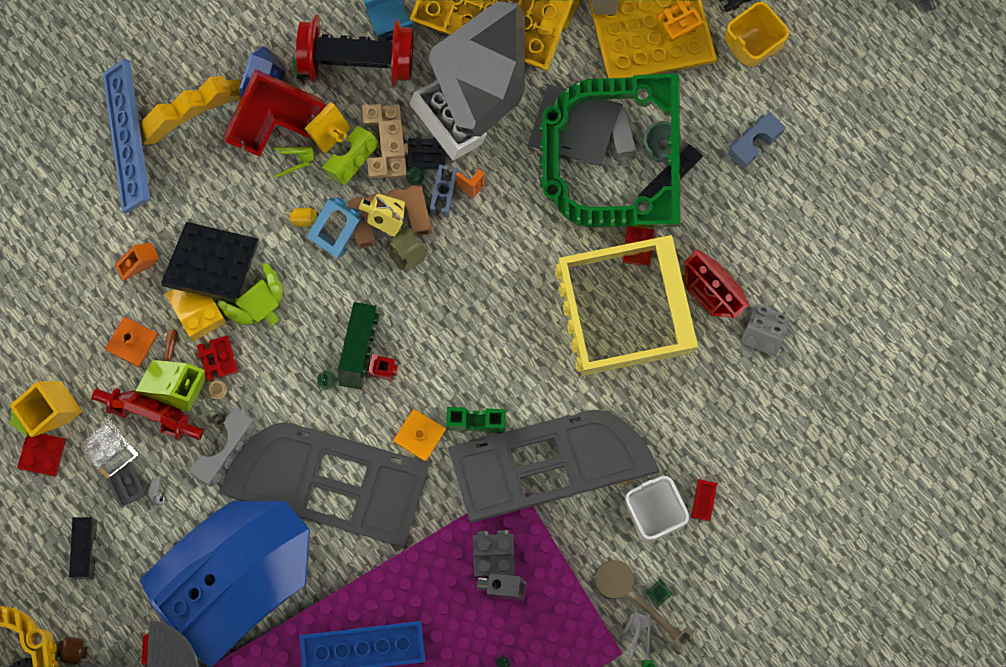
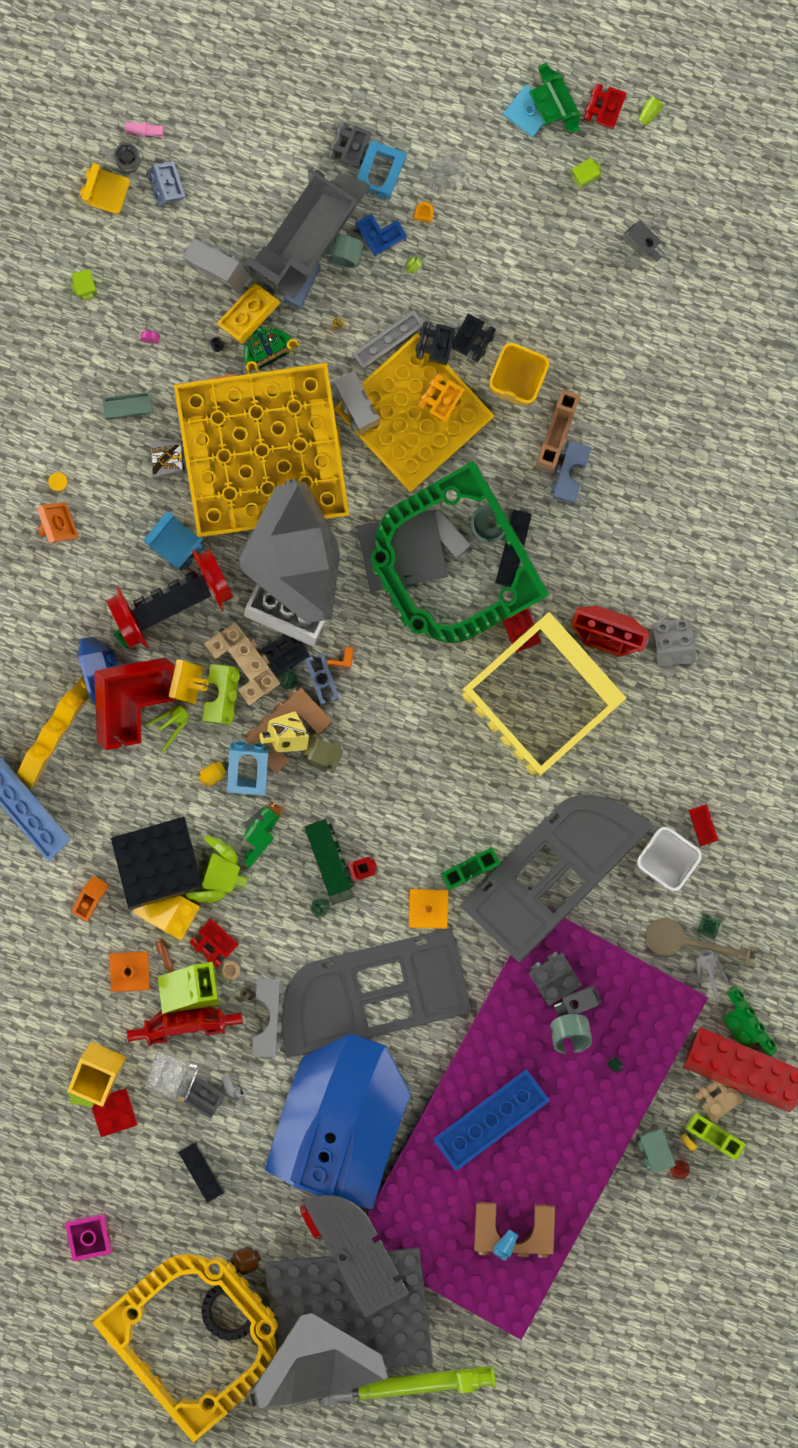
camera: 30 degrees left, 10 degrees up
(312, 286) = (258, 831): none -> green plate
(482, 605) = (573, 1027): none -> sand green piece
(748, 110) = (557, 431): none -> medium nougat arch

